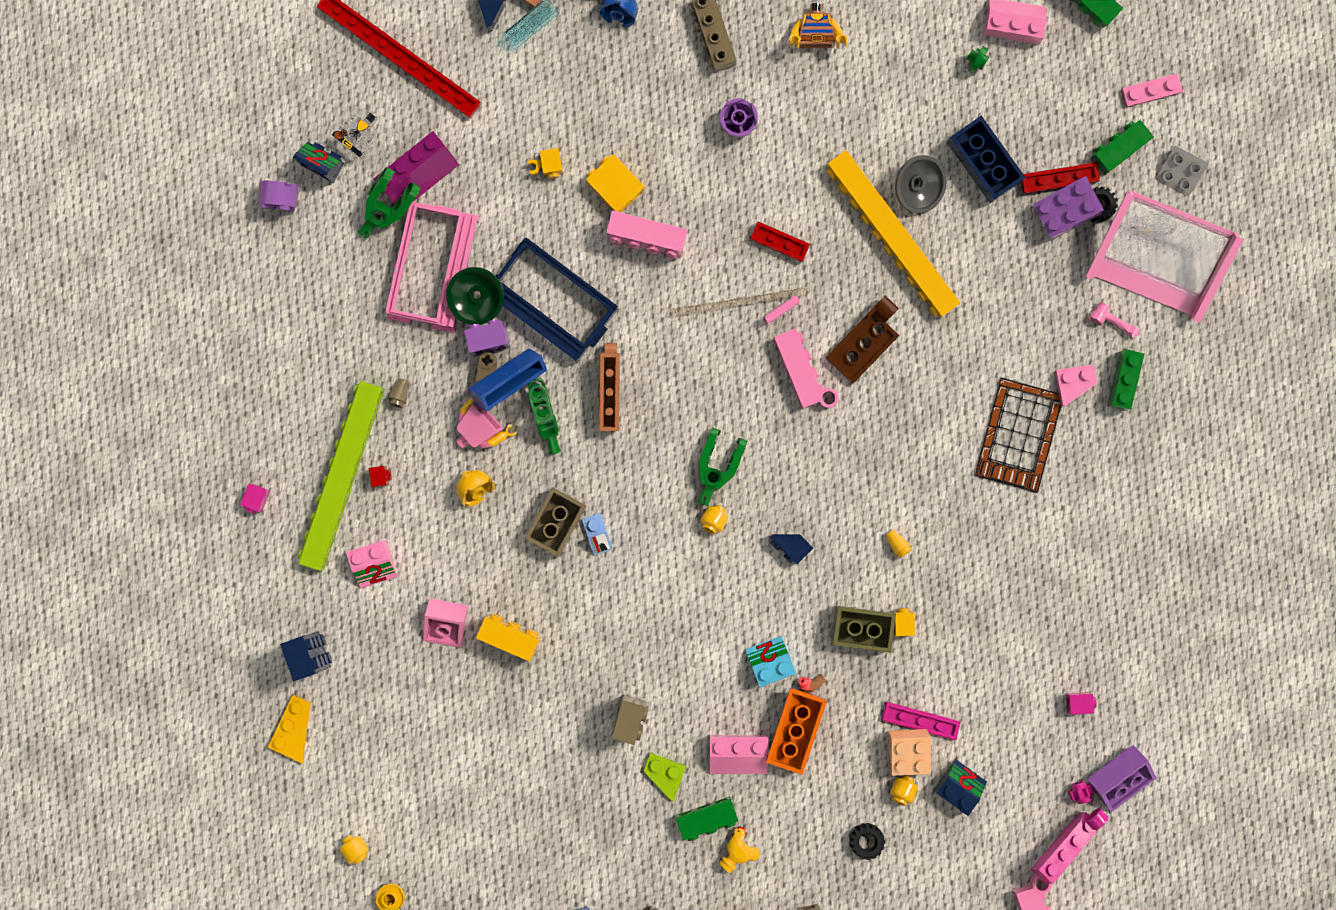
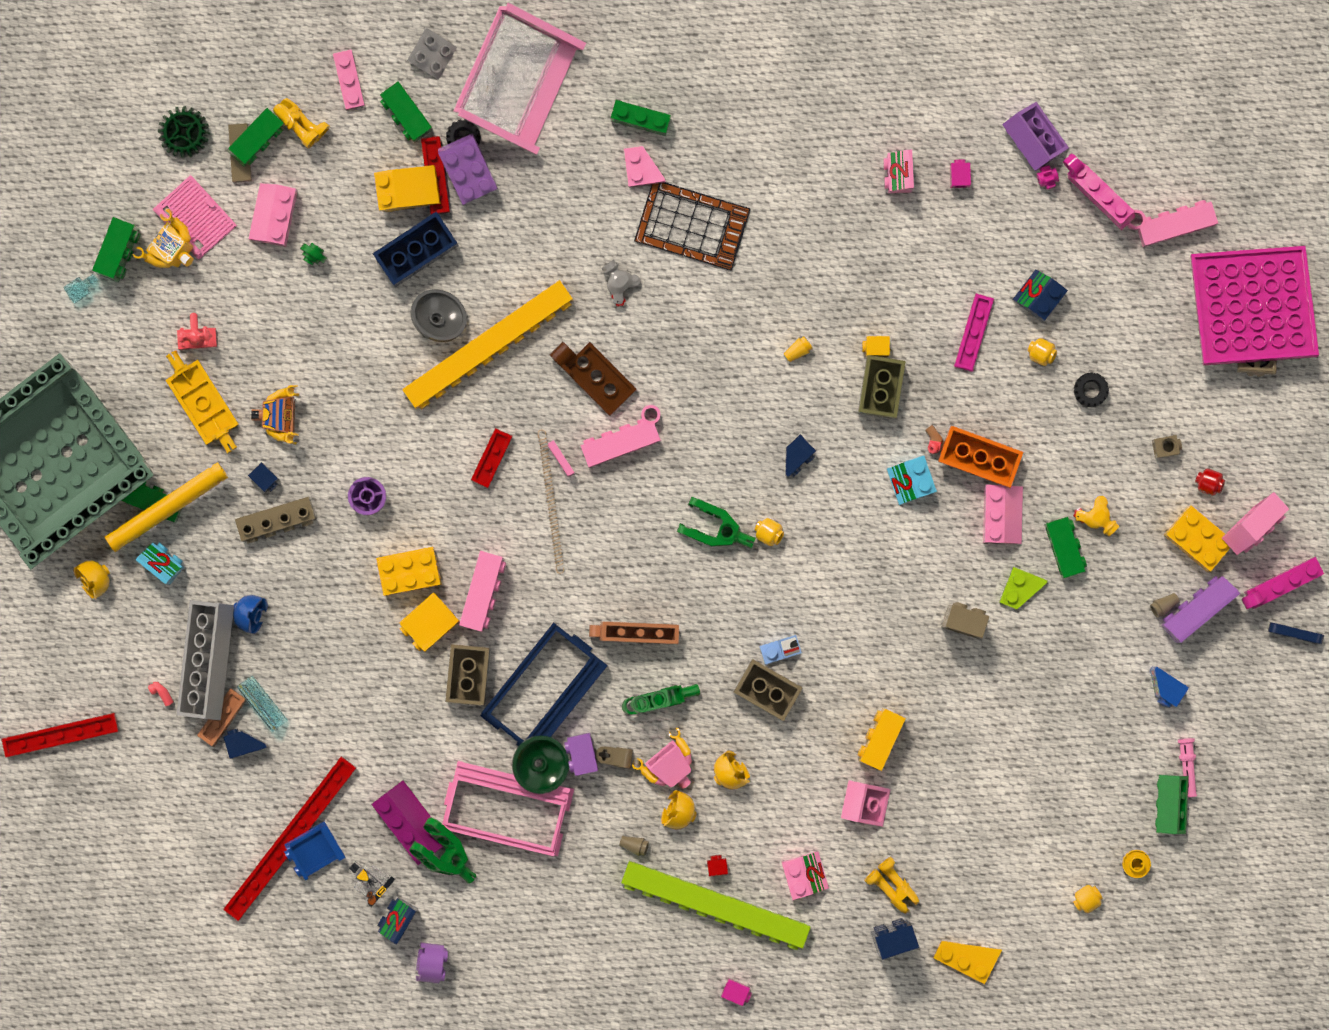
camera: 90 degrees left, 0 degrees up
(362, 662) = (902, 887): none -> yellow piece
(386, 76) = (313, 850): none -> blue panel
(433, 437) = (679, 811): none -> yellow cylinder
(507, 379) = (624, 734): blue brick -> none
(549, 162) = (405, 687): yellow brick -> none
(563, 223) = (467, 674): none -> dark tan brick
(665, 162) = (408, 571): none -> yellow brick
(753, 18) = (264, 478): none -> dark blue brick
(909, 752) = (1004, 345): light nougat brick -> none
(960, 363) = (619, 282): none -> light grey animal
(1046, 148) = (406, 188): none -> yellow slope
(1081, 642) = (900, 172): none -> slope
(1096, 53) = (292, 116): none -> yellow piece
(1101, 313) = (573, 138): bright pink brick -> none

